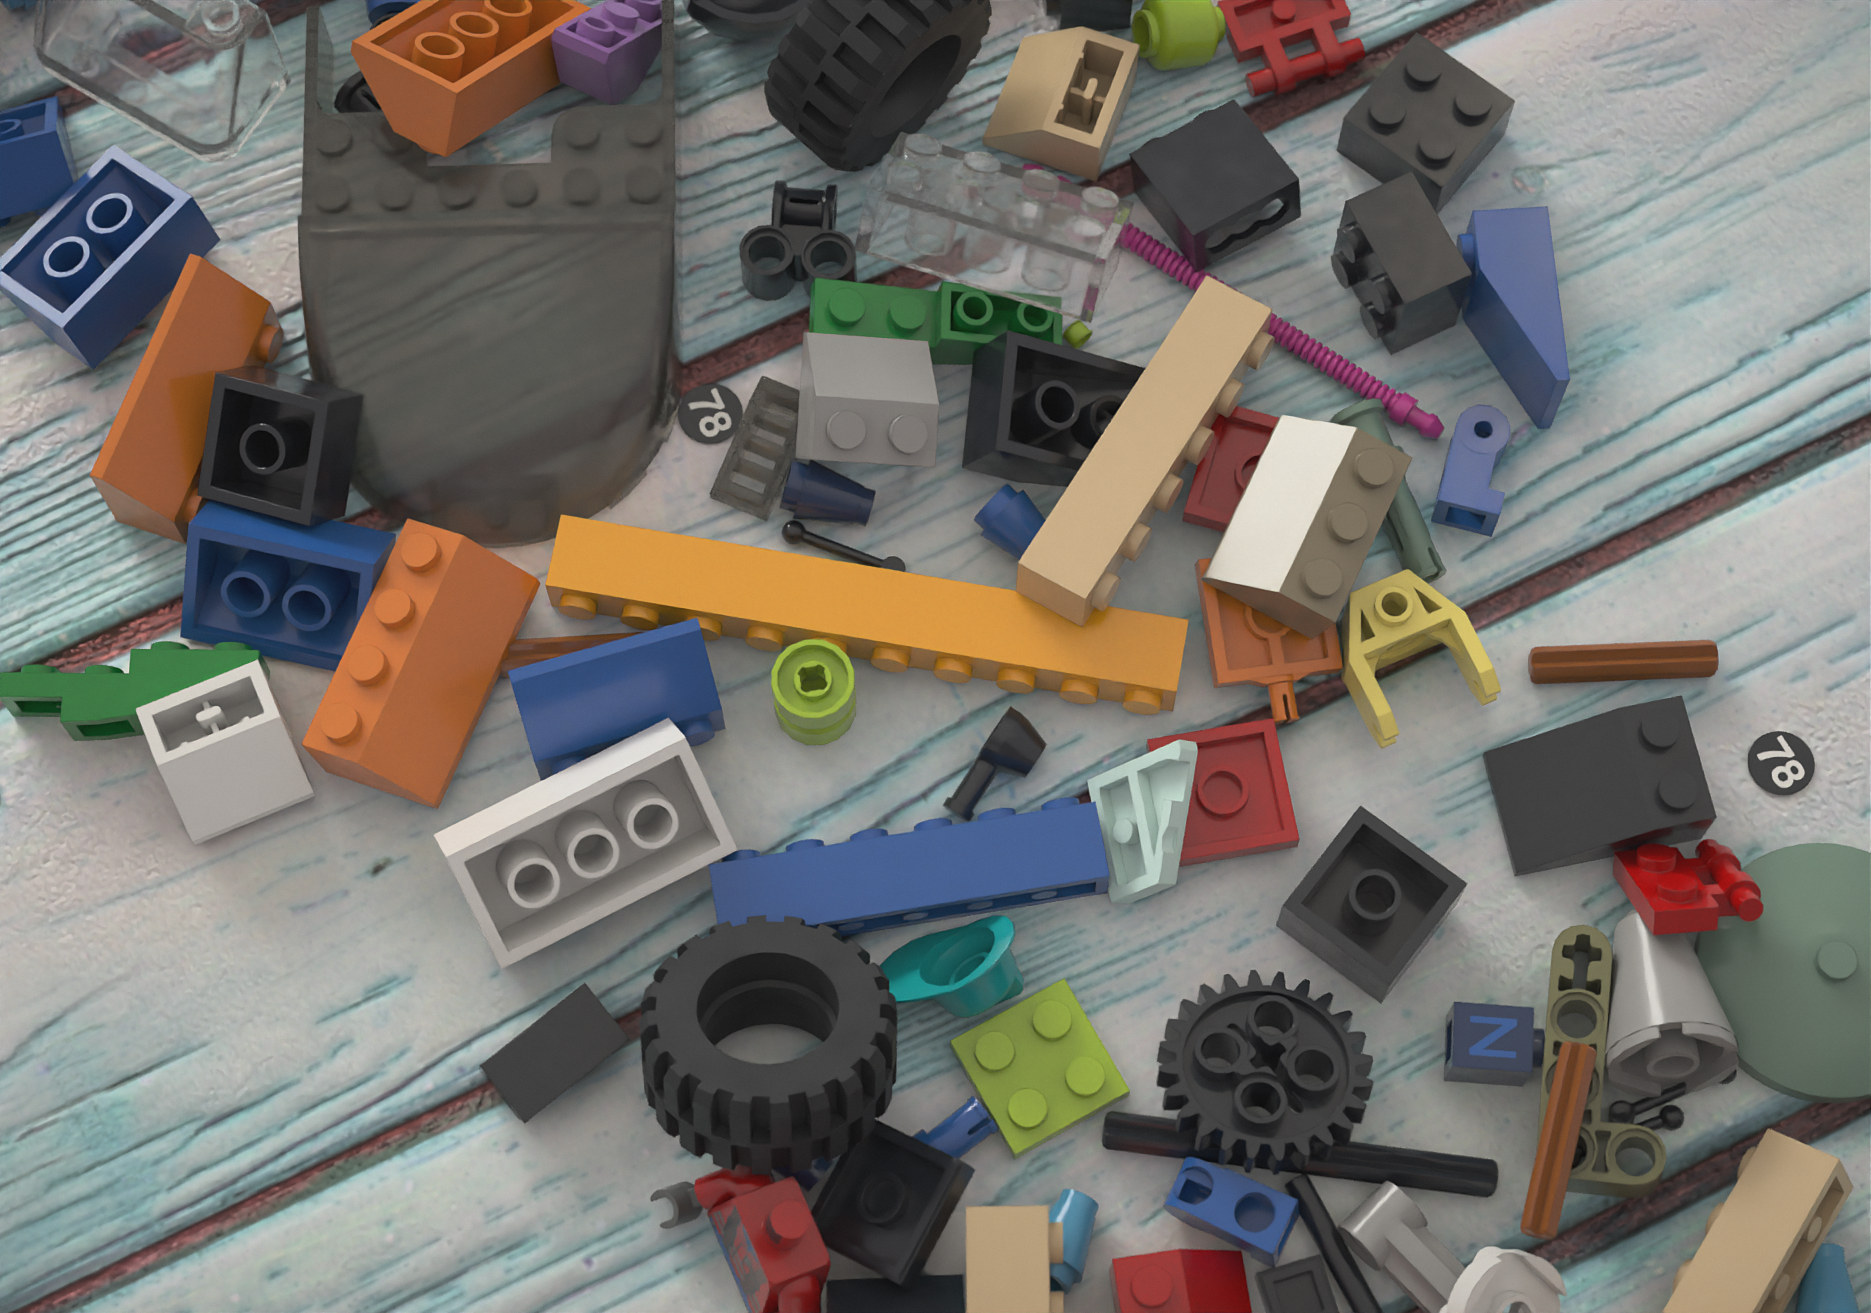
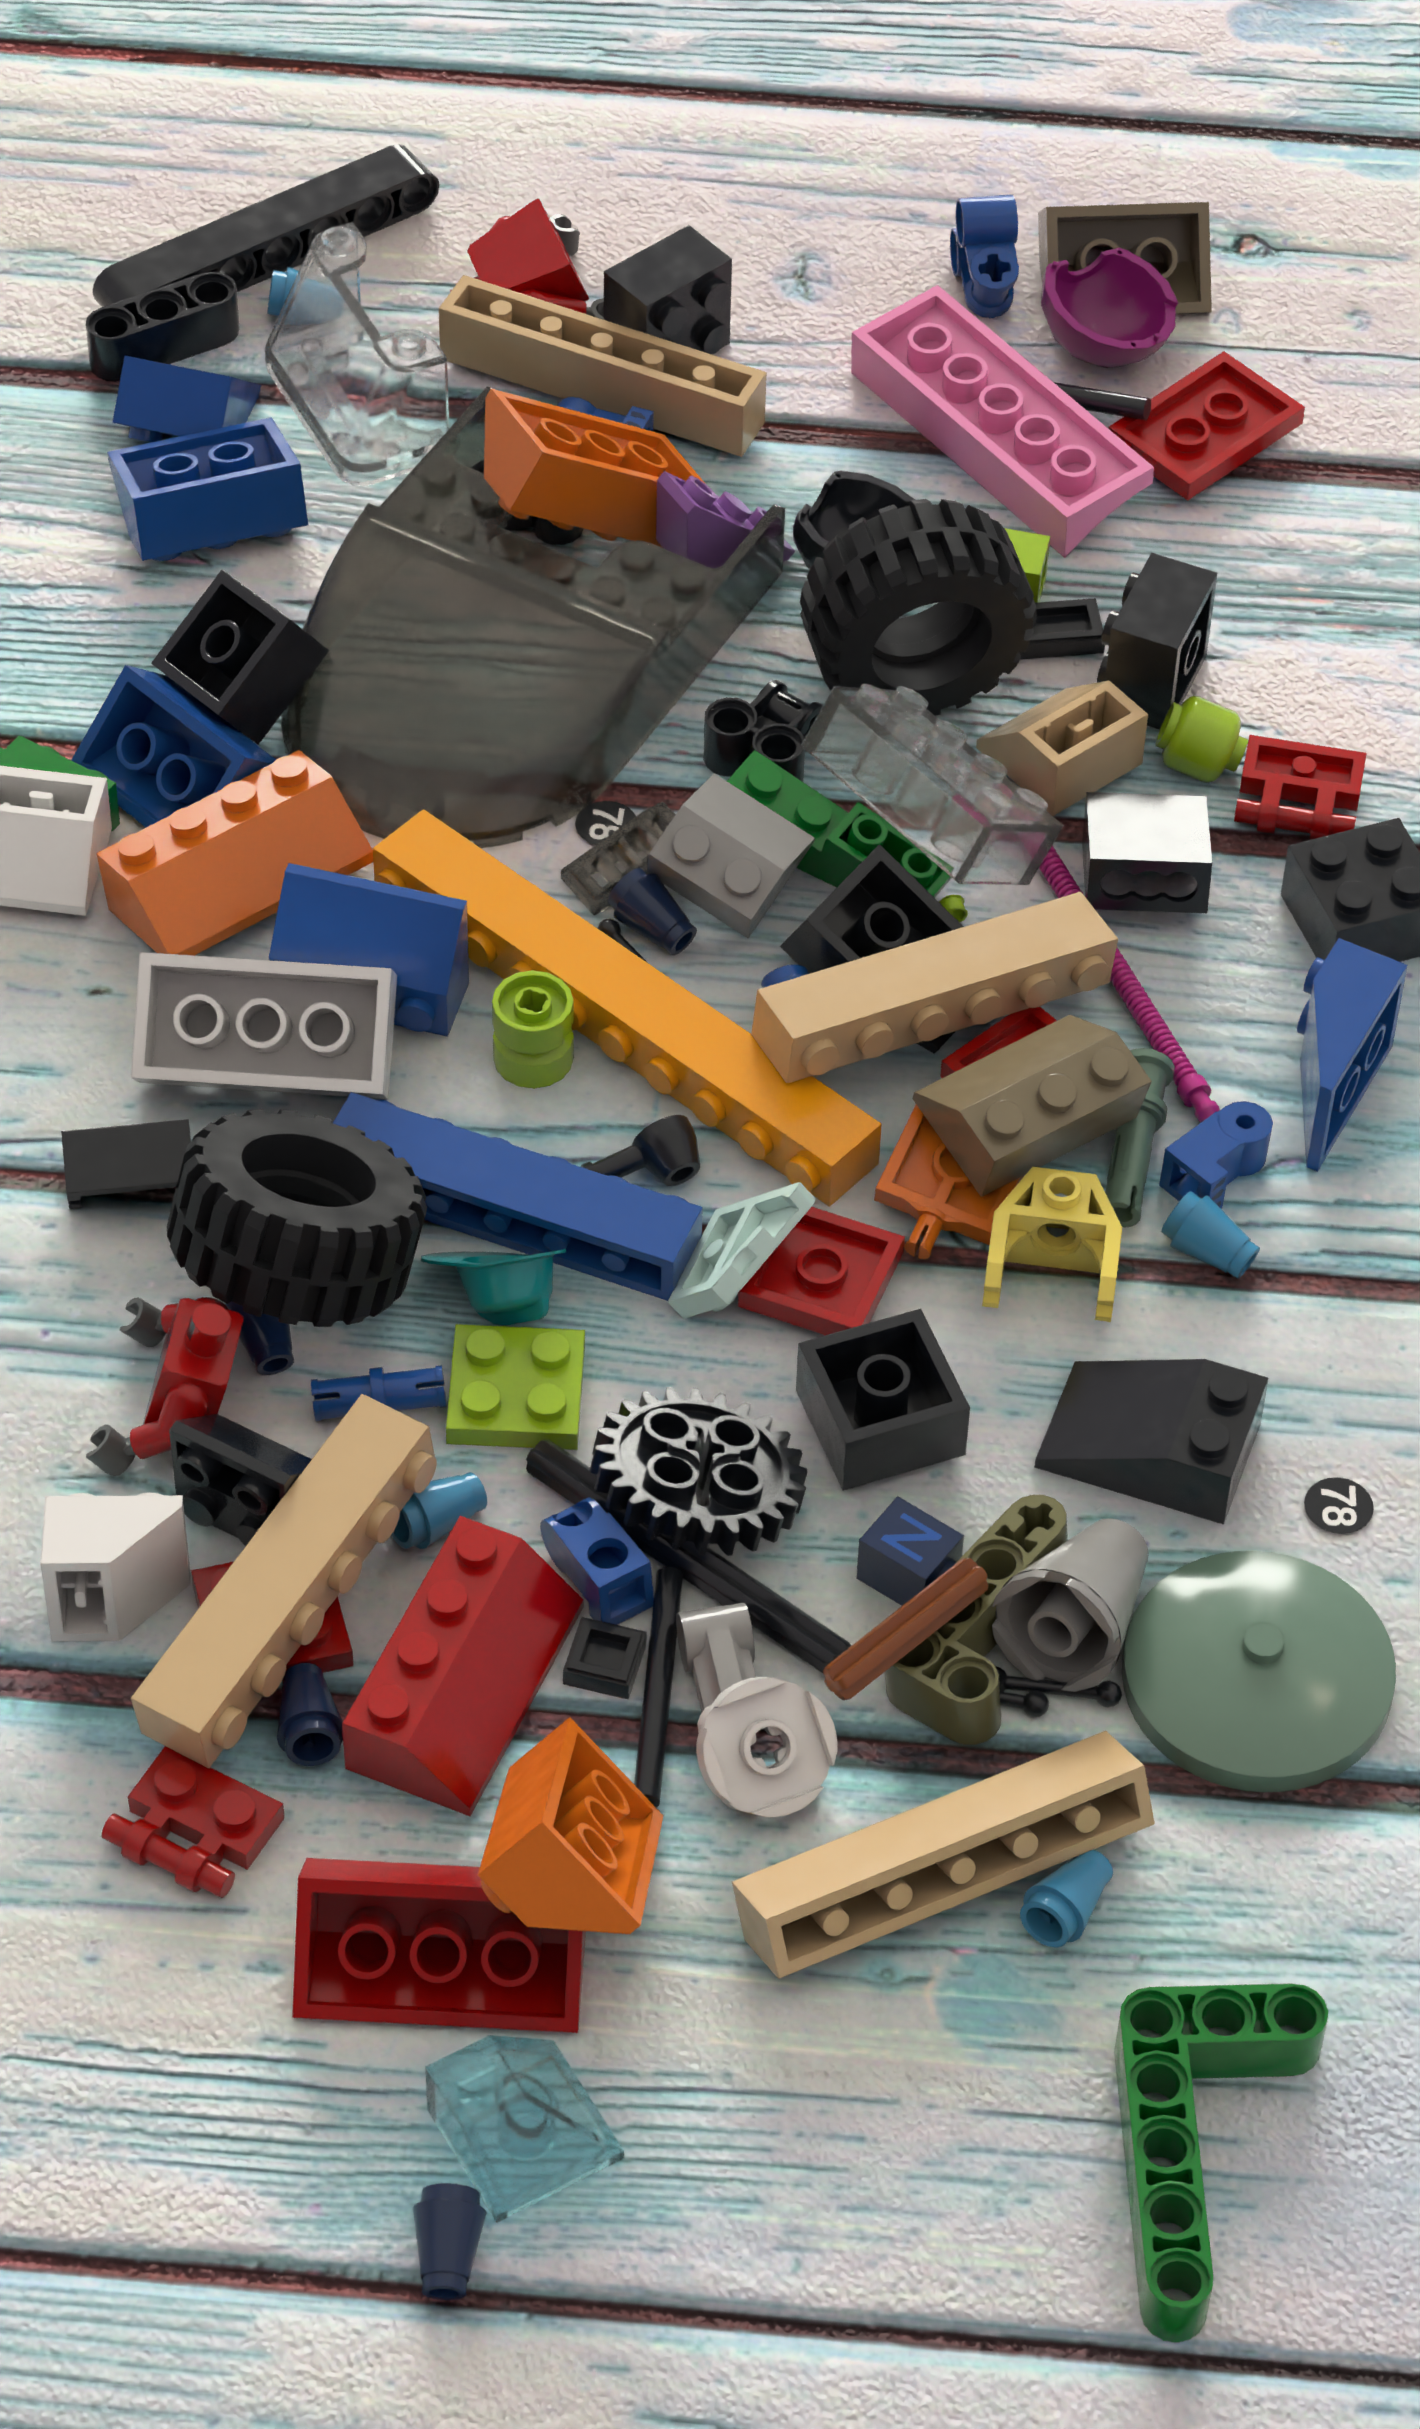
camera: 30 degrees right, 20 degrees down
(159, 434) = (141, 603): orange slope -> none
(890, 1202) = (308, 1384): black plate -> none
(1400, 264) = (1257, 971): black brick -> none
(1515, 558) = (1209, 1235): none -> dark azure cone
(1623, 661) = (1229, 1347): dark orange axle -> none
(1686, 893) = (1156, 1516): red plate -> none

